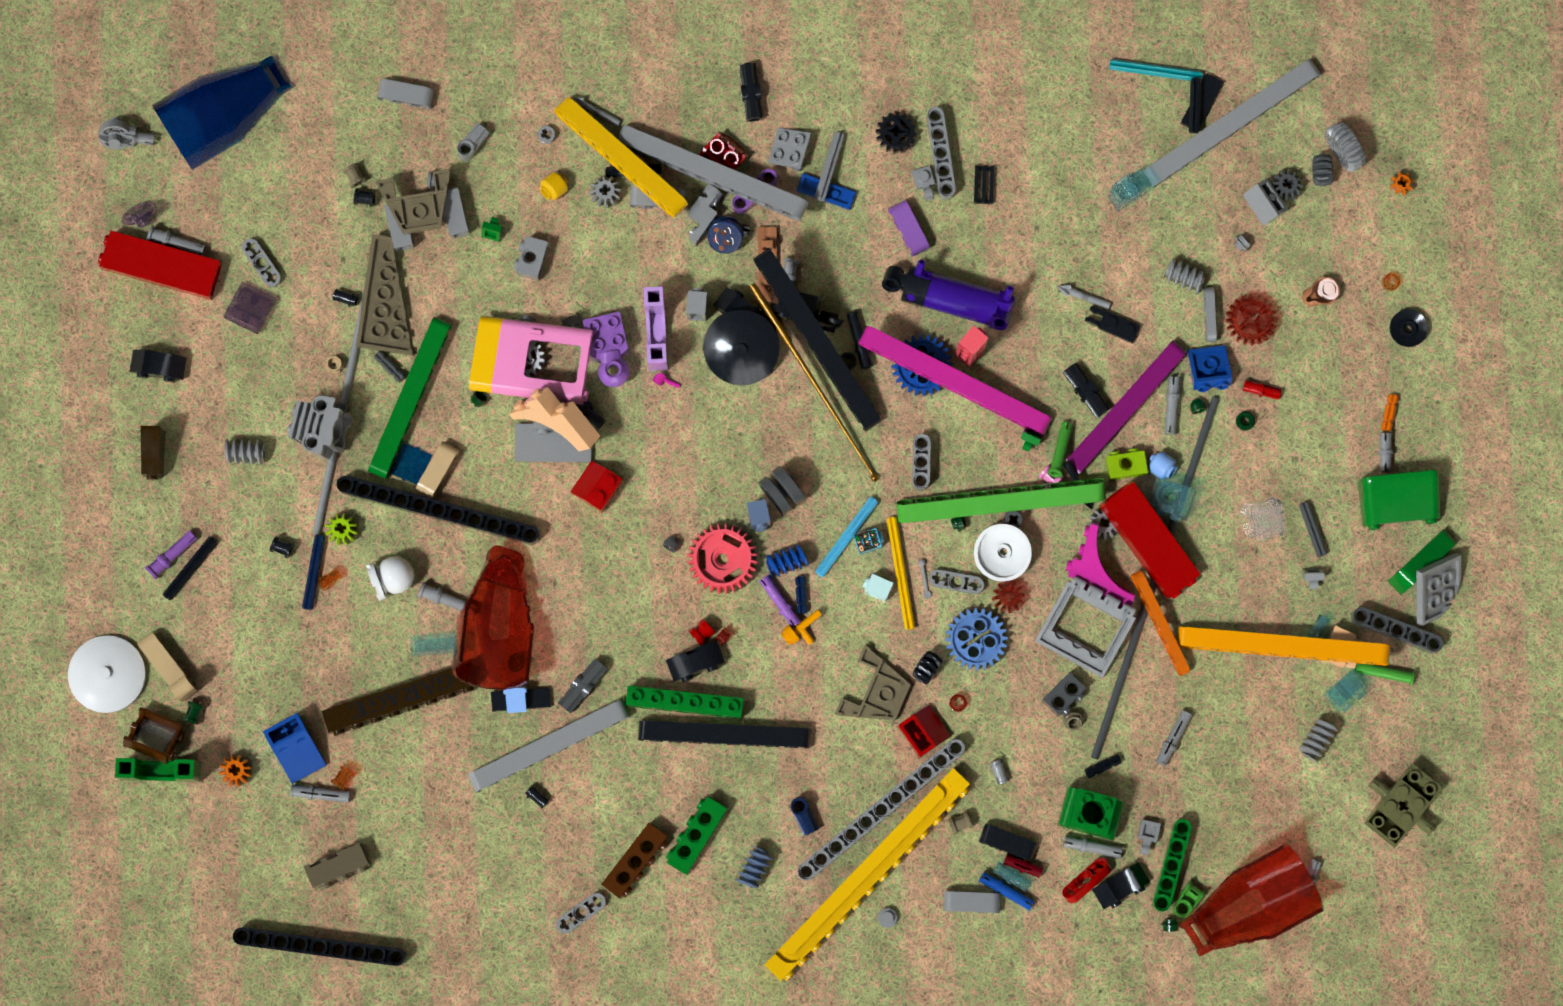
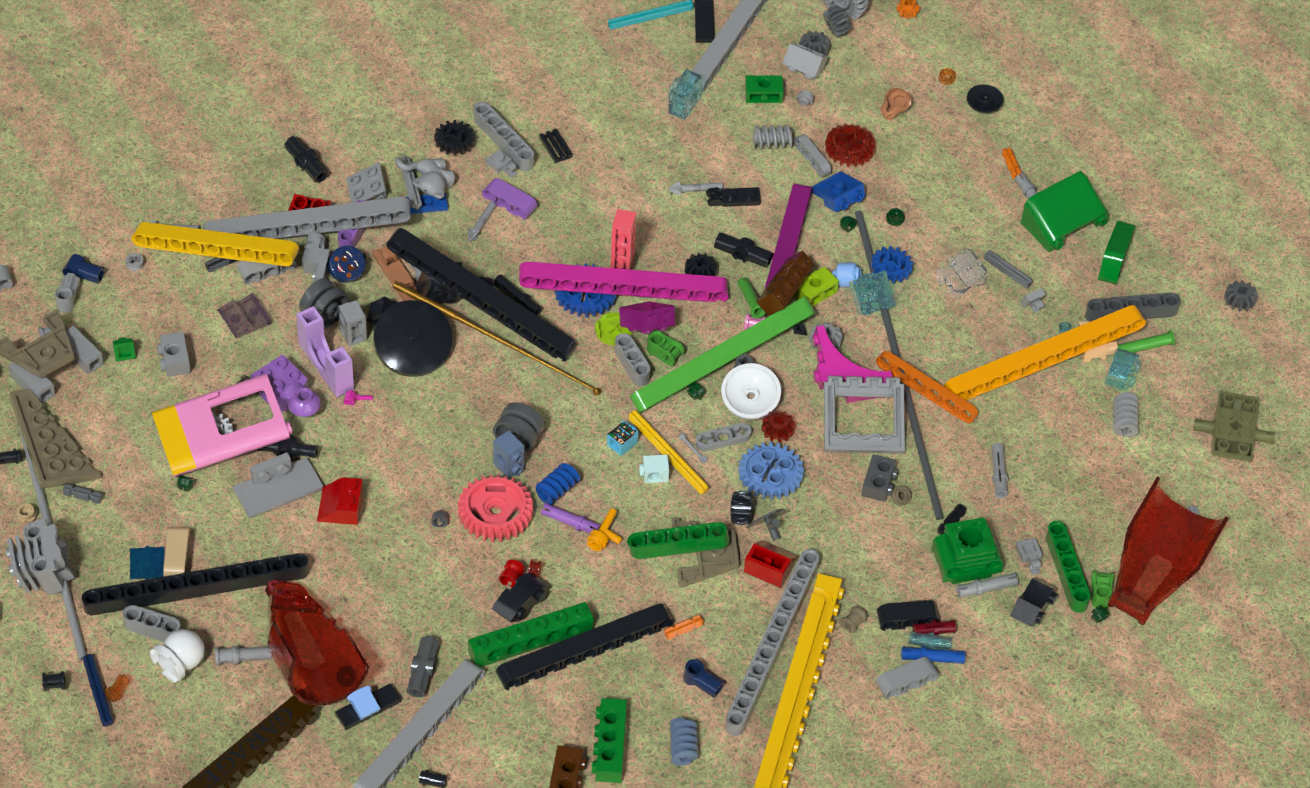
camera: 30 degrees left, 30 degrees down
(336, 535) = (107, 640): lime gear -> none
(376, 527) = (140, 620): none -> light grey beam
(409, 396) = (116, 509): green beam -> none
(432, 645) = (258, 696): clear light blue tile -> none
(494, 119) = (83, 269): none -> dark blue piece
(553, 186) = (164, 293): yellow head -> none
(561, 417) = (278, 445): light nougat arch -> none
(611, 195) = (215, 279): light grey gear -> none
(613, 243) = (244, 316): none -> slope
(683, 272) = (326, 299): none -> dark grey wheel
(801, 597) = (586, 506): dark blue axle -> none
(816, 755) = (683, 627): none -> orange axle
(845, 180) = (433, 177): none -> light grey animal
(846, 537) = (600, 446): medium azure axle -> none
(846, 670) = (692, 539): none -> green beam
(857, 250) = (473, 233): none -> light grey piece
(887, 917) = (837, 728): light grey plate -> none
(925, 417) = (609, 327): none -> lime tile
(945, 691) = (771, 523): none -> dark grey shield
(951, 295) = (573, 226): dark purple piece -> none
(954, 429) = (647, 316): none -> magenta brick
(956, 465) = (664, 347): none -> bright green piece
(962, 707) = (784, 533): clear red bush -> none
(999, 771) = (861, 564): light grey pin -> none
(1030, 438) = (718, 302): green tile -> none
(1036, 385) = (701, 265): none -> black gear
(1073, 886) = (1000, 613): red beam -> none
(1094, 458) = (785, 283): none -> reddish brown brick
(1150, 540) = (874, 326): red brick -> none
(1172, 405) = (821, 225): light grey pin -> none
(1194, 111) = (700, 21): black axle -> none
(1209, 466) = (892, 262): none -> blue gear
(1214, 224) = (763, 89): none -> green brick
(1261, 389) = (893, 190): red axle -> none
(1436, 588) = (1143, 258): light grey plate -> none
(1500, 659) = (1241, 295): none -> dark grey gear

